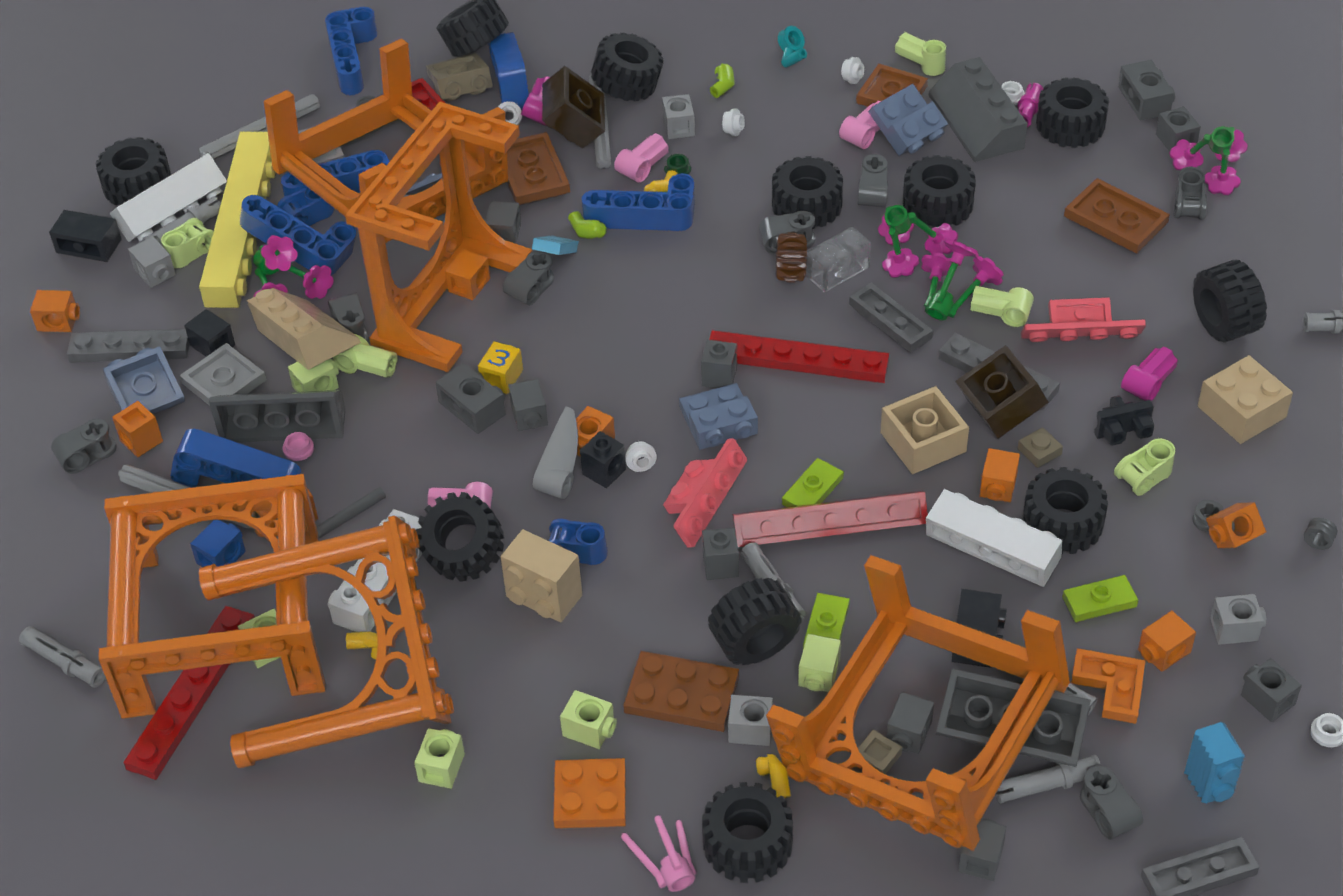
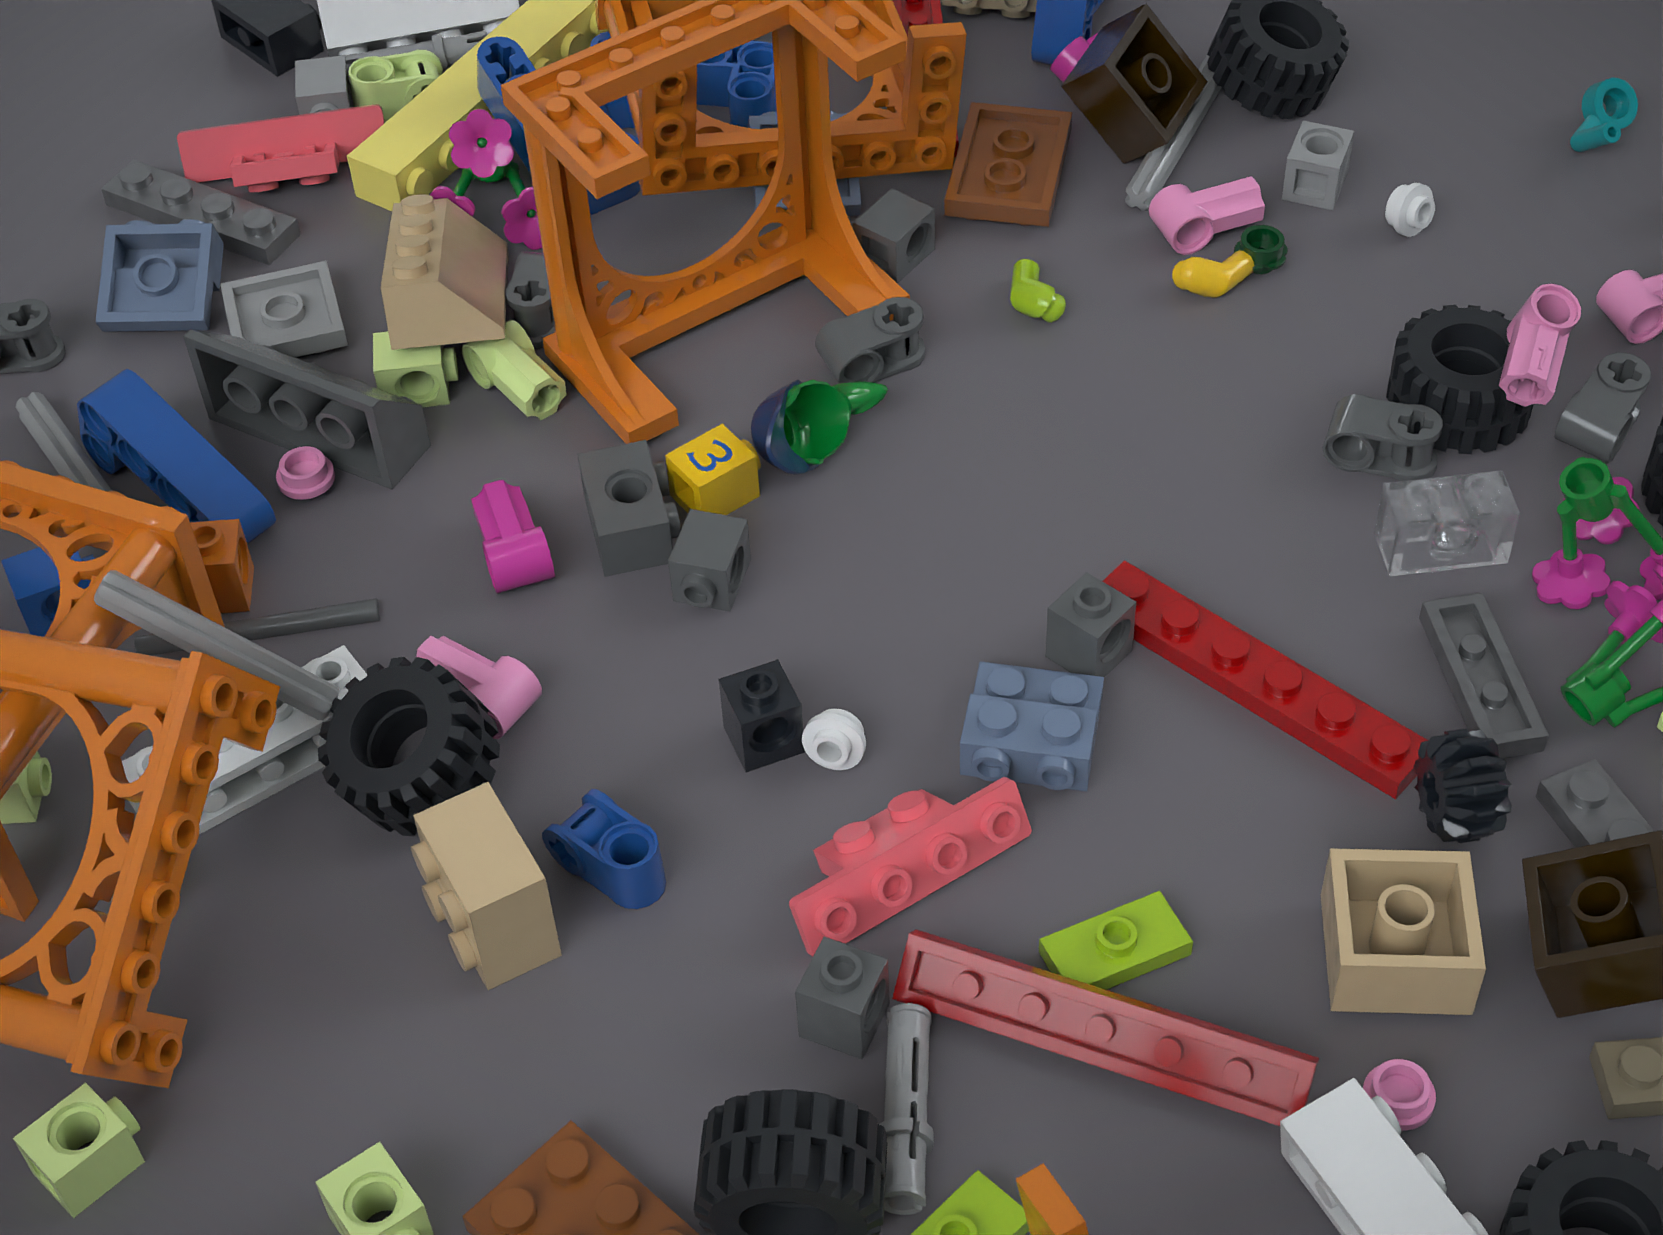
camera: 30 degrees right, 0 degrees up
(54, 311) = (135, 117): orange brick -> none
(137, 429) = (87, 341): orange brick -> none
(151, 297) = (277, 148): none -> coral bracket
(208, 333) = (316, 234): black panel -> none
(332, 522) = (197, 633): none -> light grey axle
(431, 438) = (512, 544): none -> dark pink piece
(467, 274) = (776, 297): orange brick -> none
(515, 109) = (1022, 56): white plate -> none
(528, 325) = (809, 421): none -> green hair
(555, 245) = (947, 301): medium azure tile -> none
(557, 463) = (671, 687): light grey piece -> none
(590, 423) = (785, 638): orange brick -> none
(644, 209) = (1152, 302): blue beam -> none
(725, 82) = (1445, 138): lime arm -> none
(791, 257) = (1352, 484): reddish brown gear -> none
(837, 163) = (1538, 344): none -> bright pink piece
(913, 363) = (1462, 785): none -> black gear
(960, 485) = (1404, 1089): none -> bright pink plate
(999, 475) = (1506, 1100): orange brick -> none

